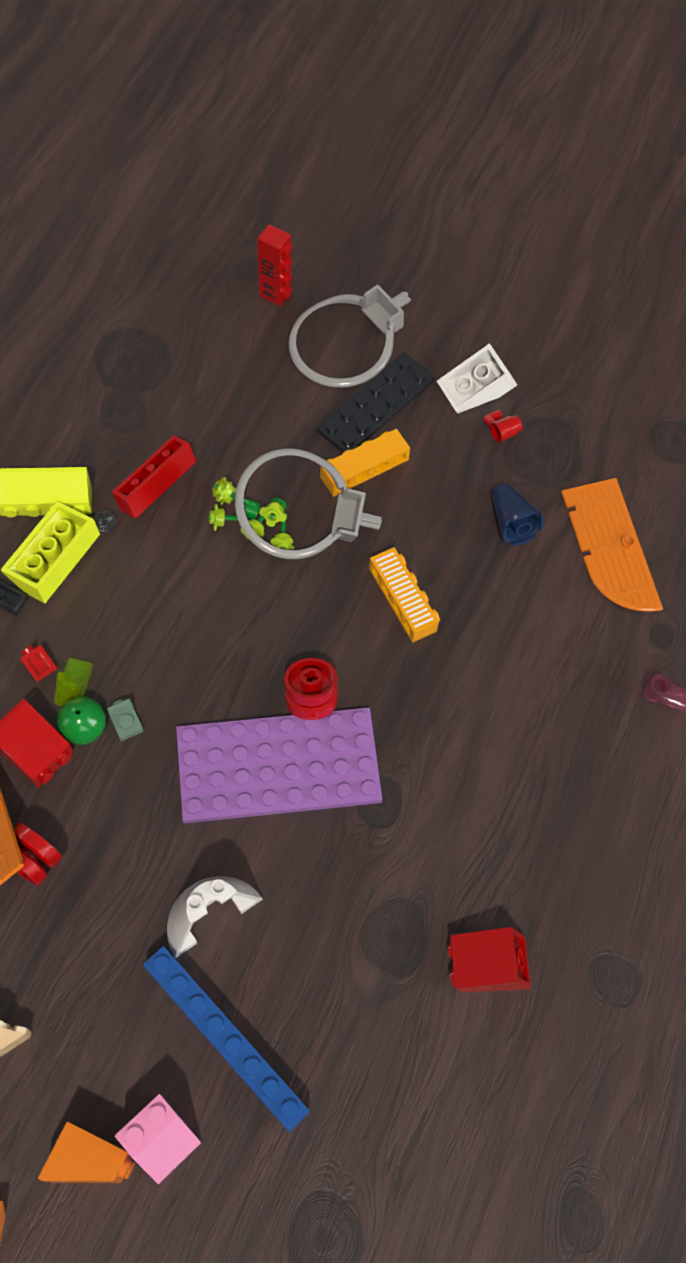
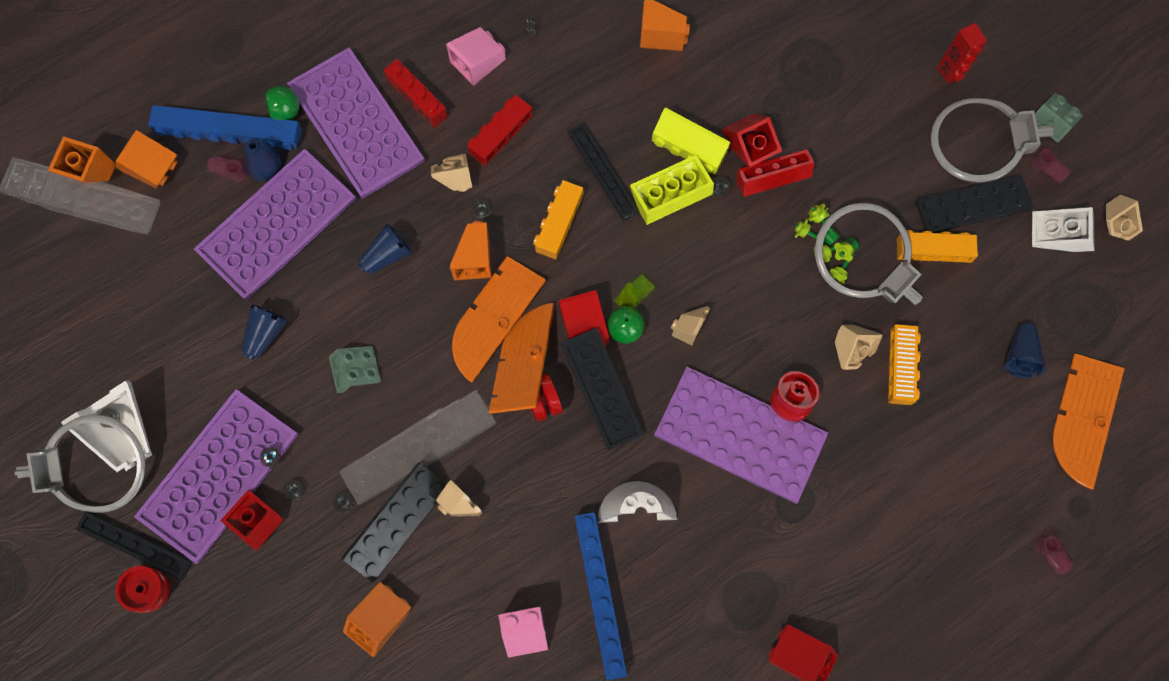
camera: 35 degrees right, 10 degrees up
(37, 662) = (618, 265): red bracket -> none
(85, 1159) = (473, 615): orange slope -> none
(93, 804) = (601, 389): none -> black plate
(110, 453) = (753, 139): none -> red slope
(124, 719) = (655, 340): sand green bracket -> none
(153, 681) = (689, 325): none -> tan slope
(343, 602) = (854, 344): none -> tan slope
(404, 278) = (1059, 115): none -> sand green bracket
(419, 328) = (1051, 165): none -> clear pink piece
(503, 428) = (1061, 279): red piece -> none
(525, 340) = (1123, 217): none -> tan slope

